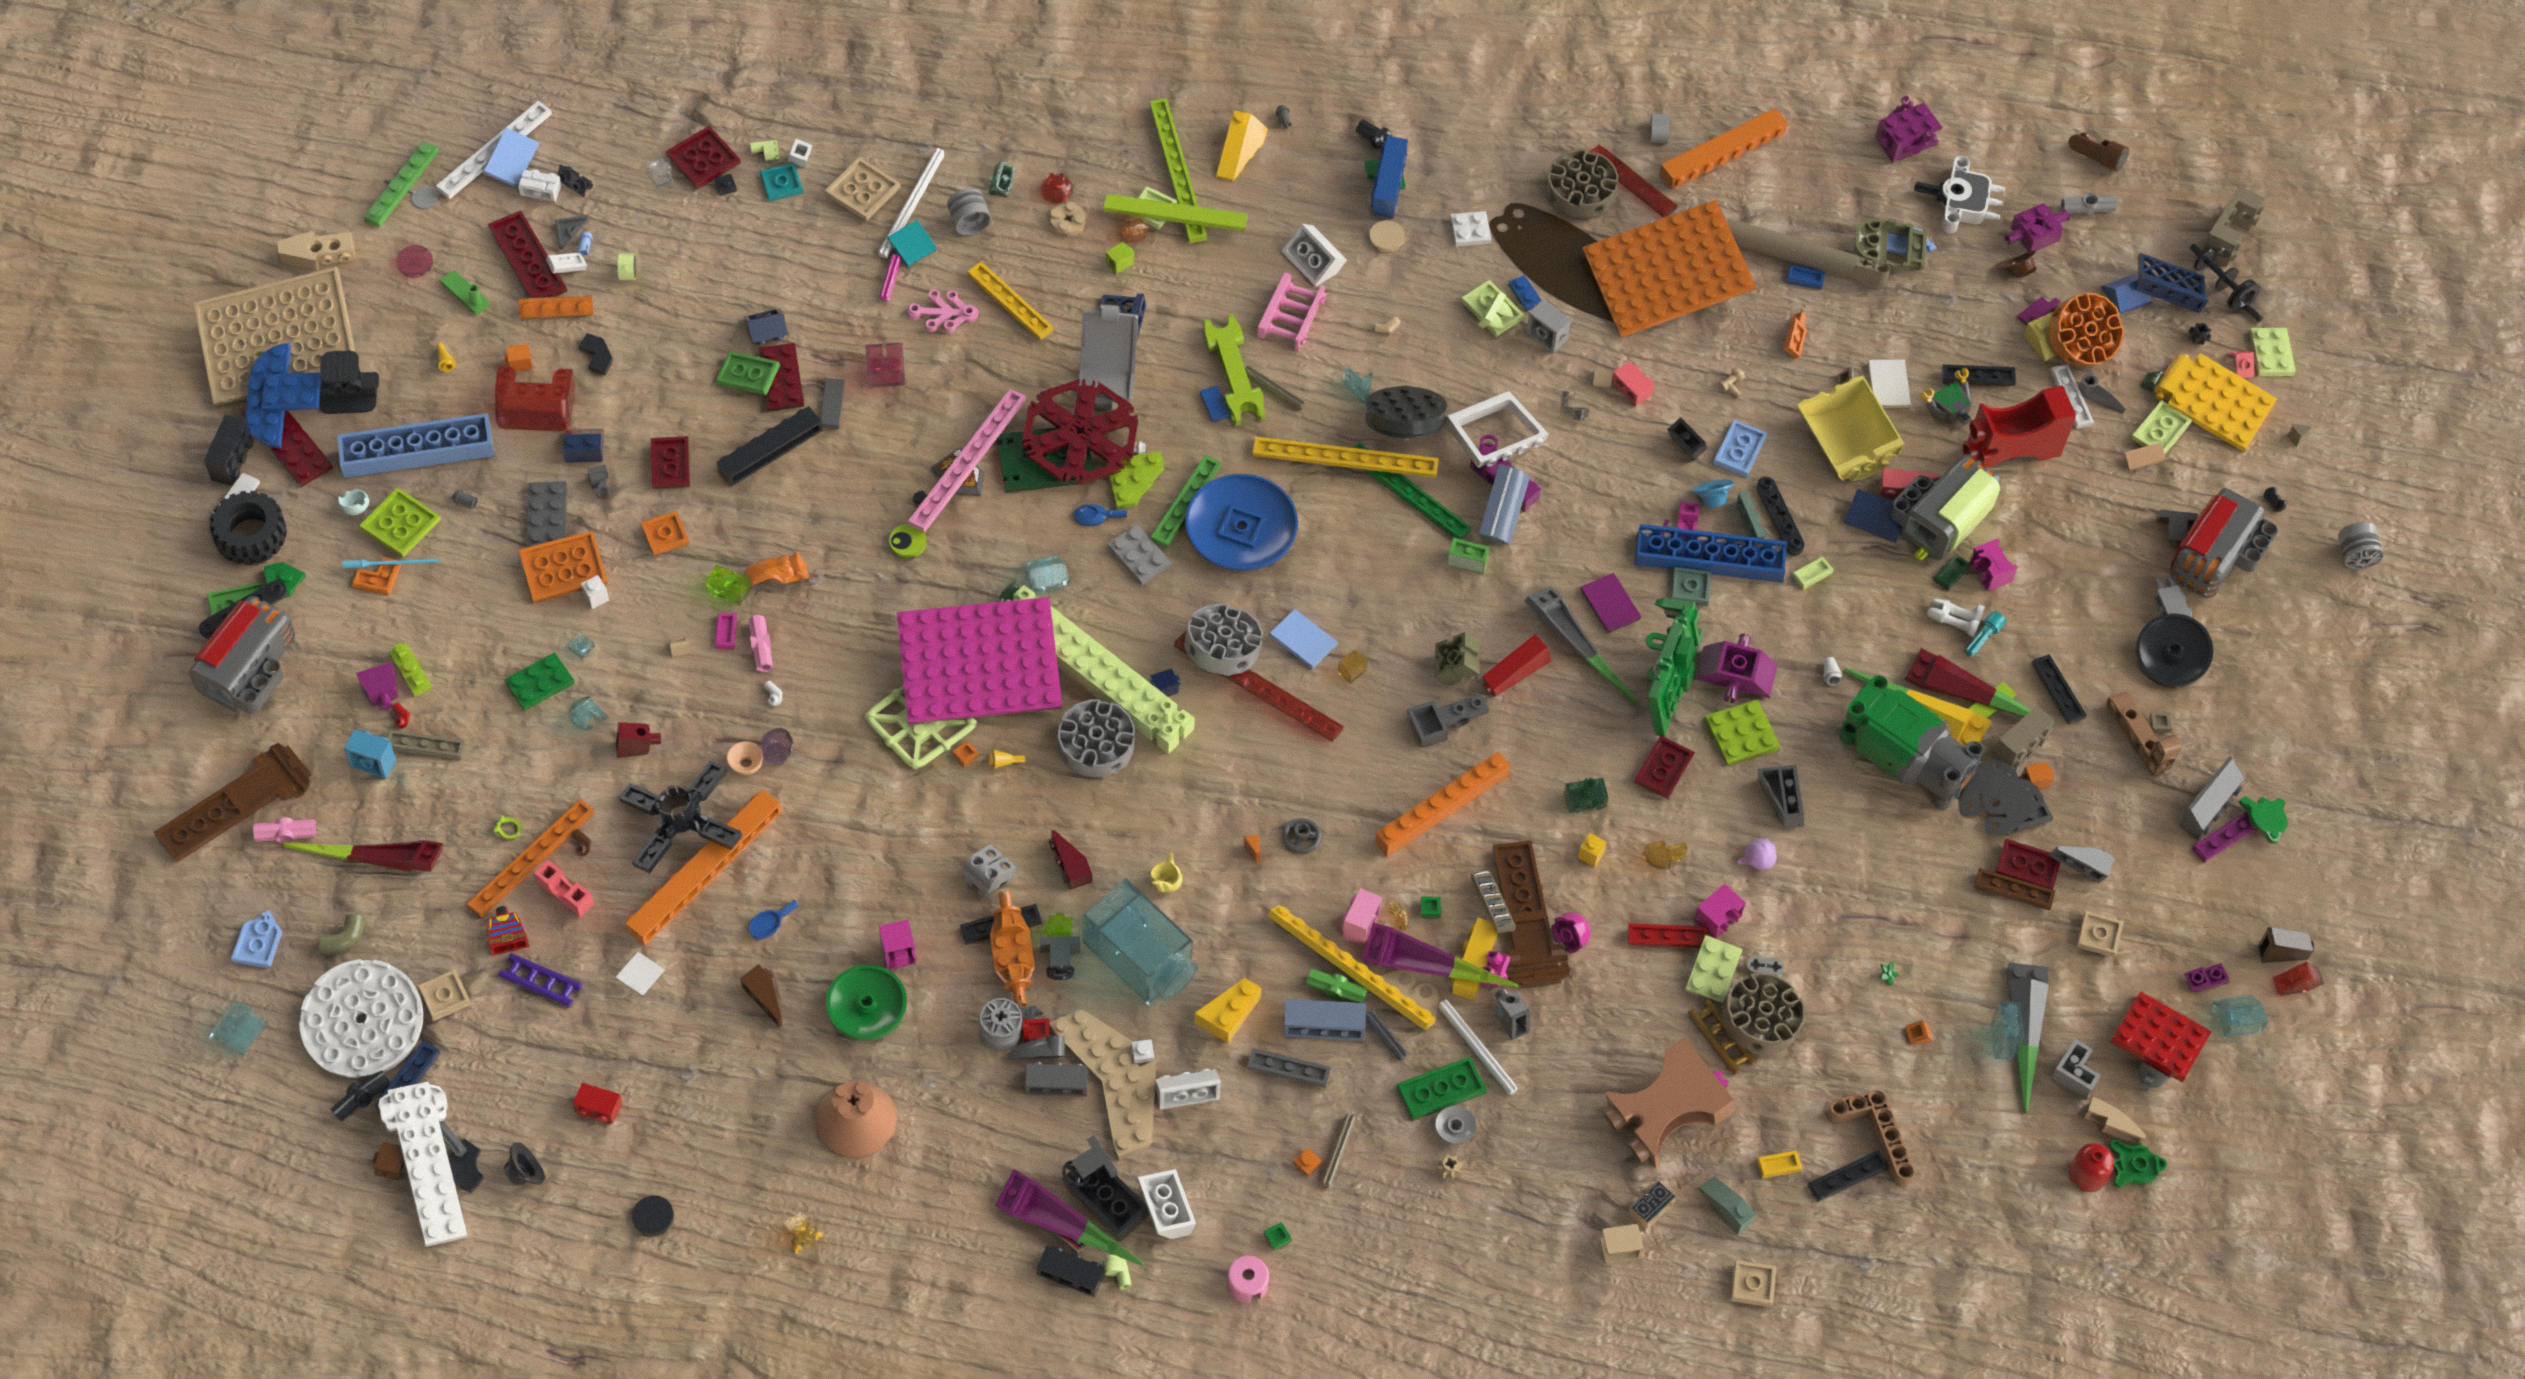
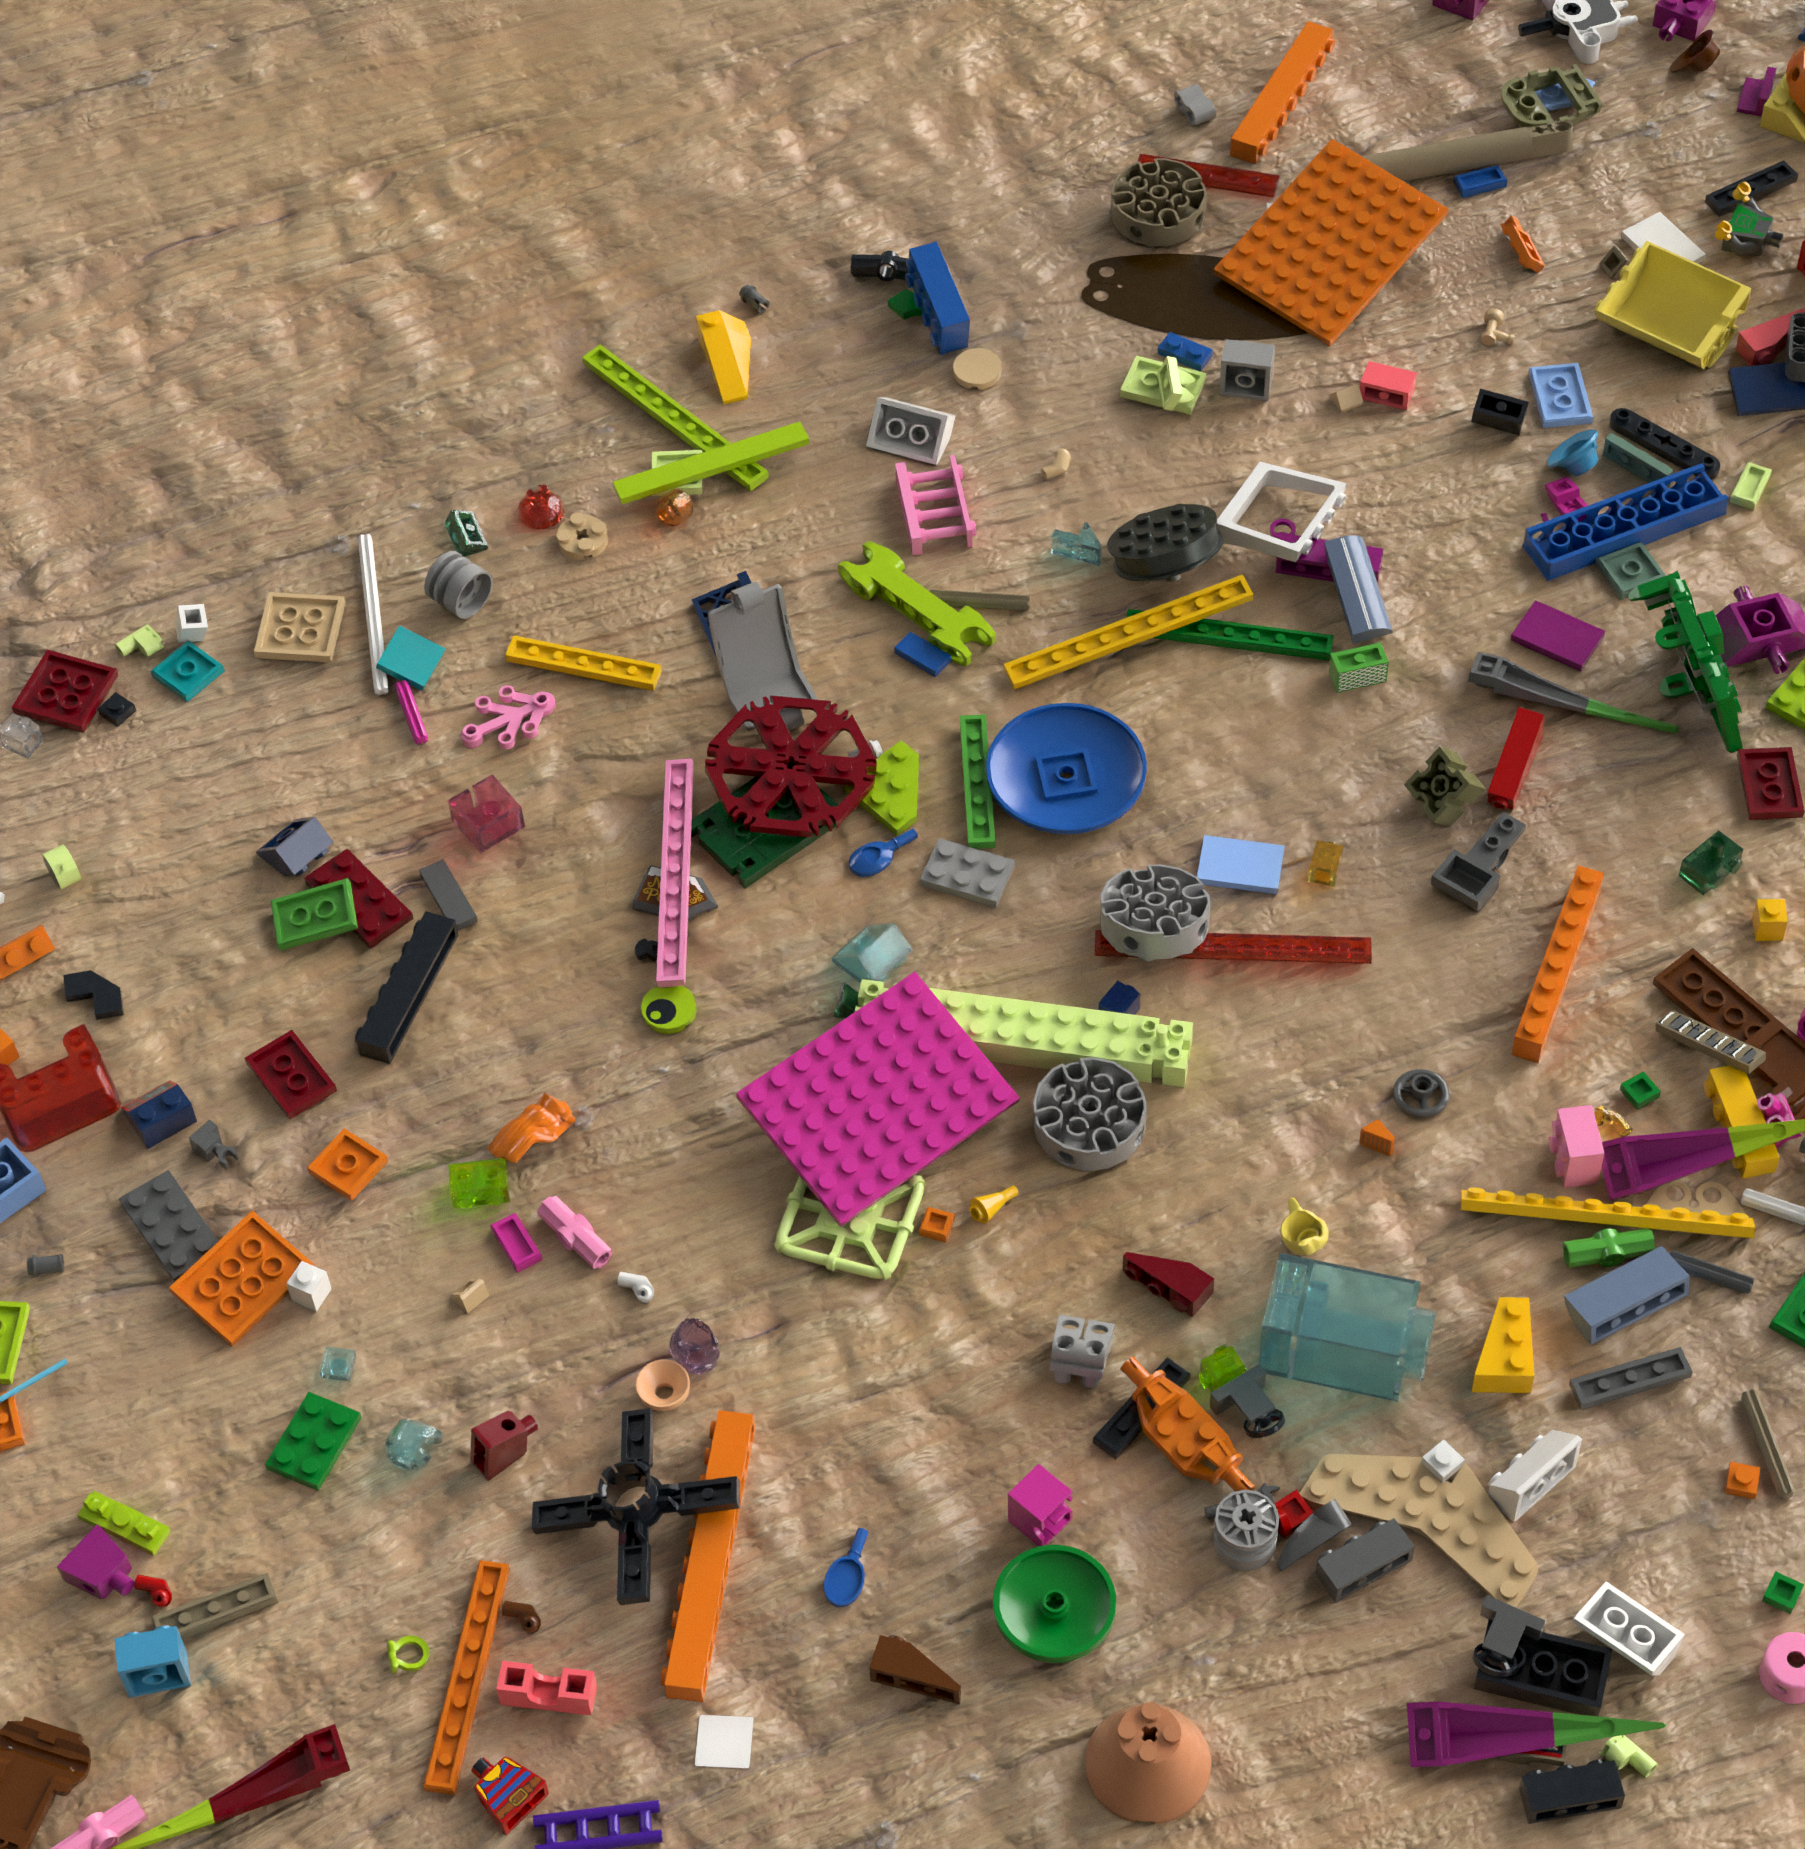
camera: 25 degrees left, 5 degrees down
(1120, 257) = (680, 547): lime brick -> none
(1470, 228) = (1067, 314): white plate -> none
(1578, 412) = (1352, 448): clear smoke plate -> none

